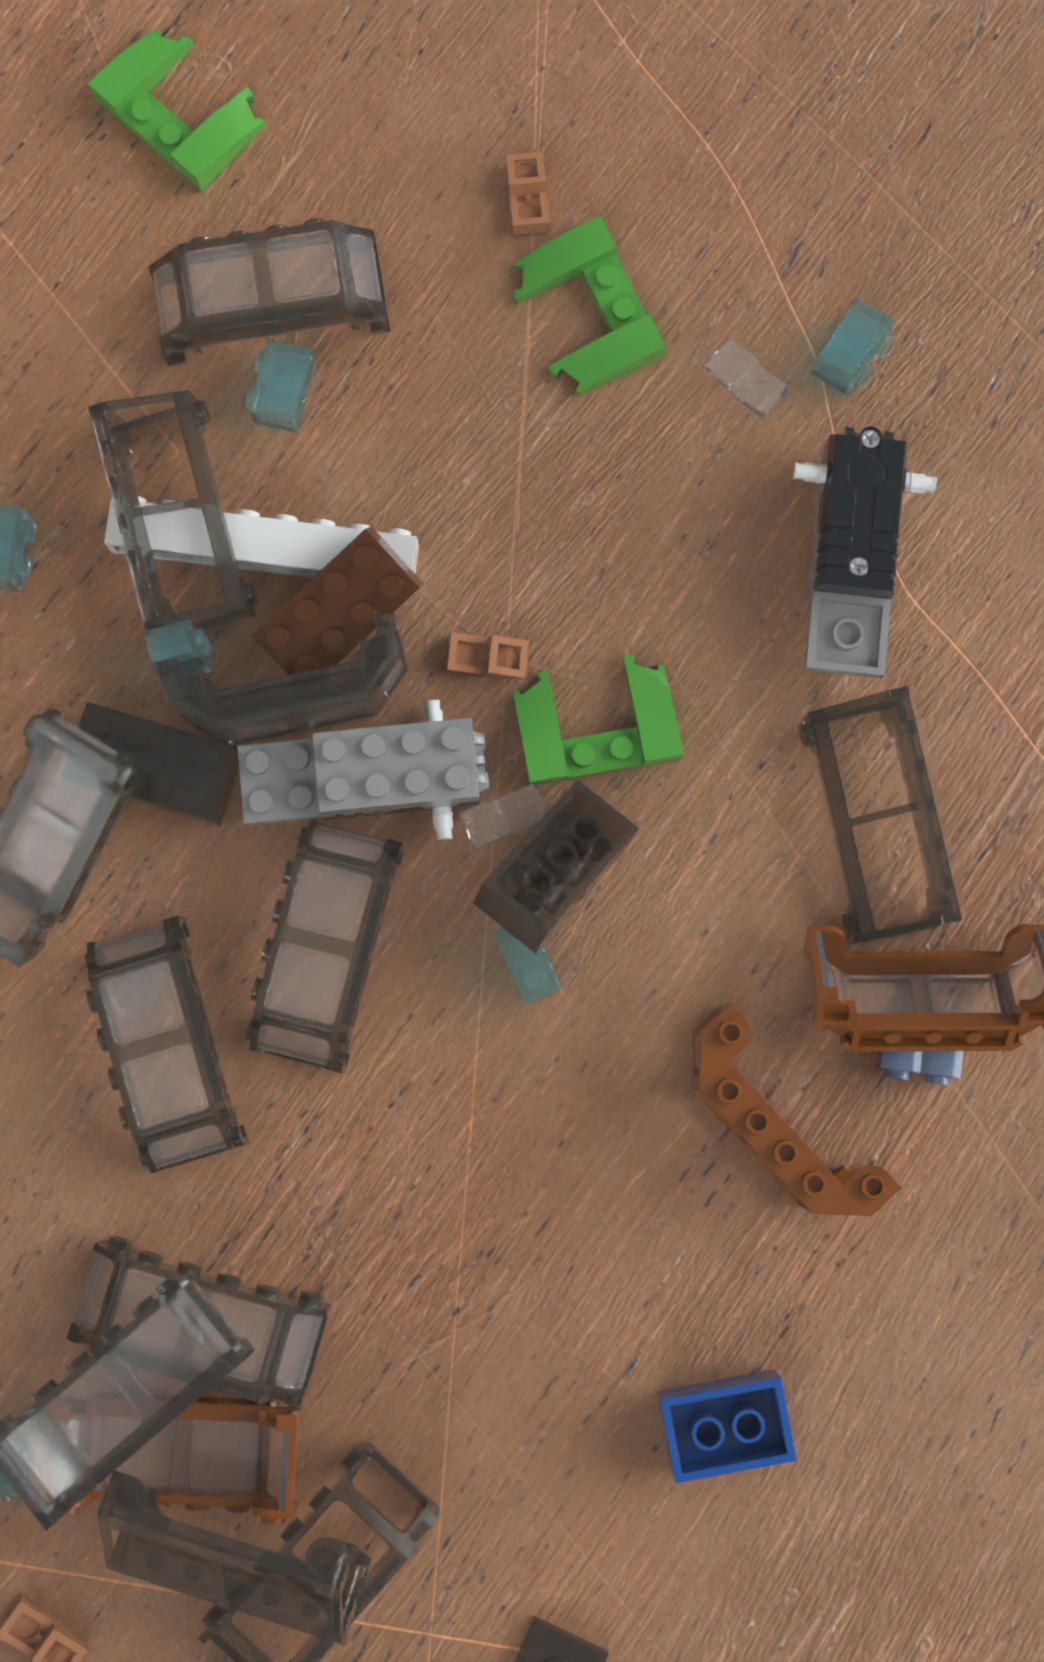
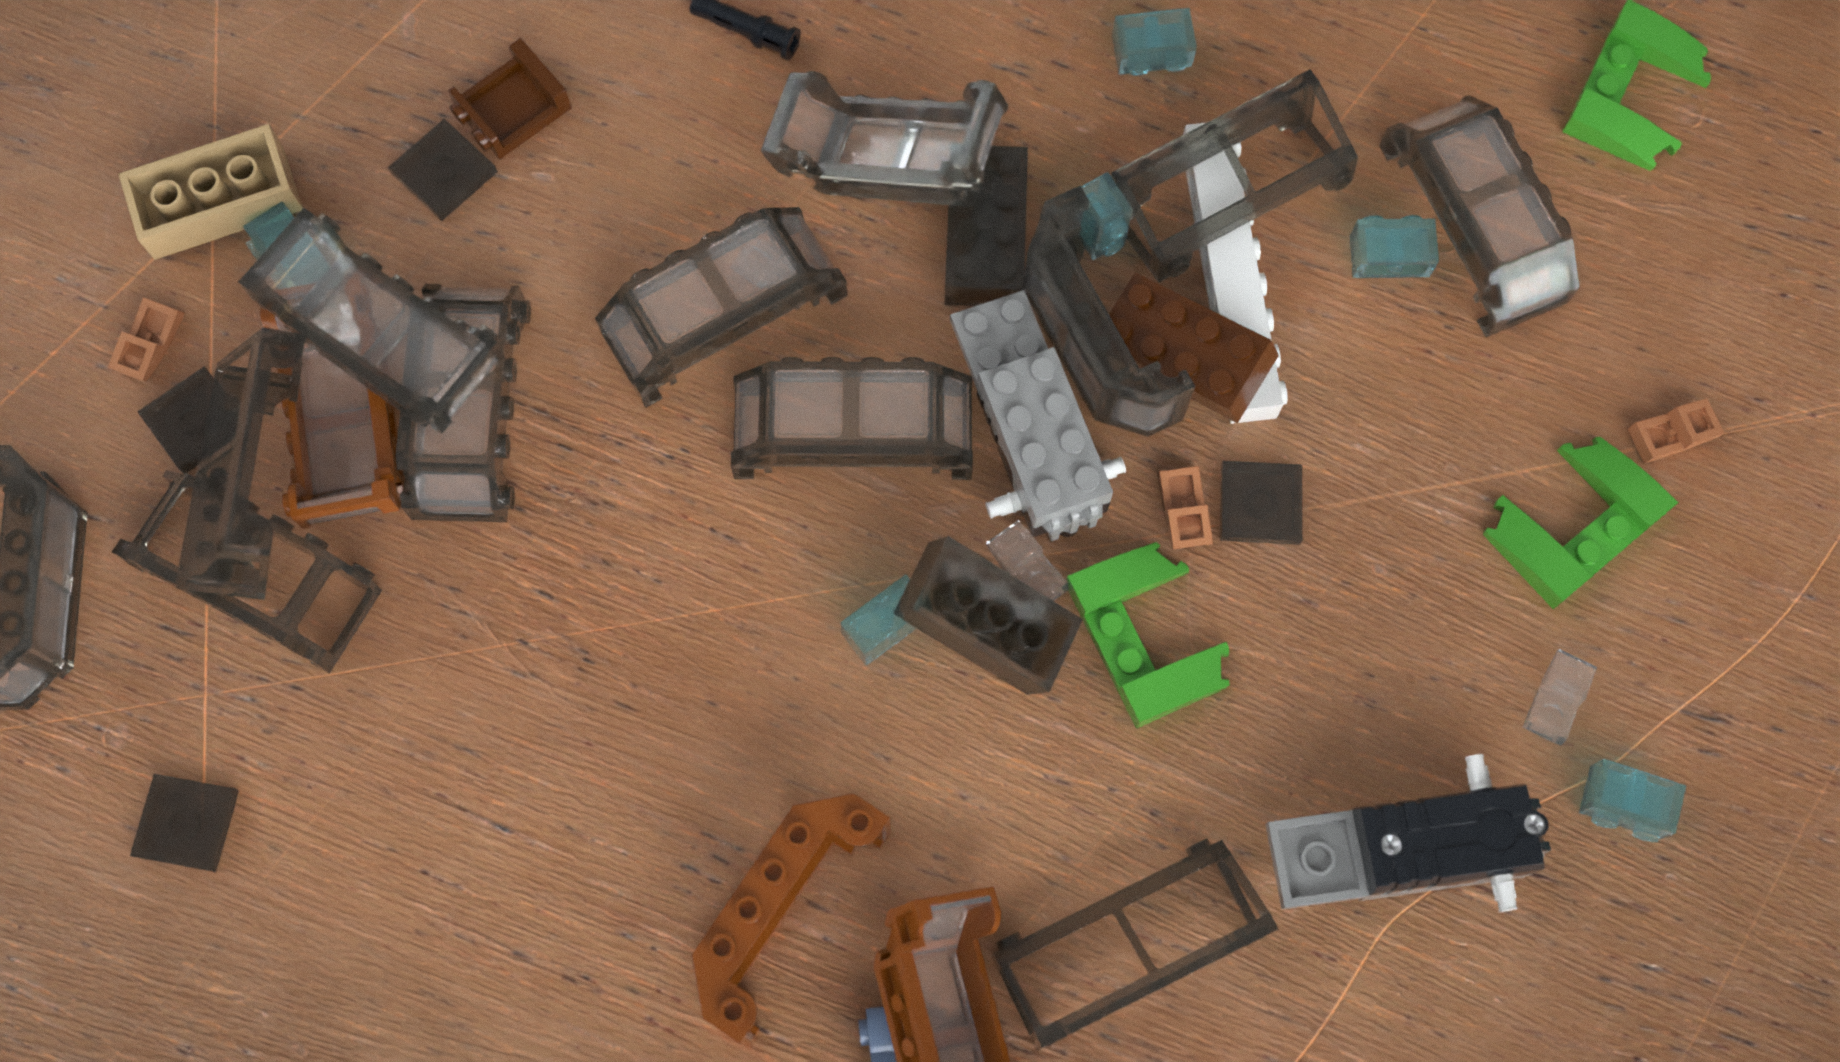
camera: 75 degrees right, 10 degrees down
(139, 1611) = (180, 418): none -> clear smoke tile
(499, 585) = (1261, 502): none -> clear smoke tile
(726, 1426) = (459, 932): blue brick -> none

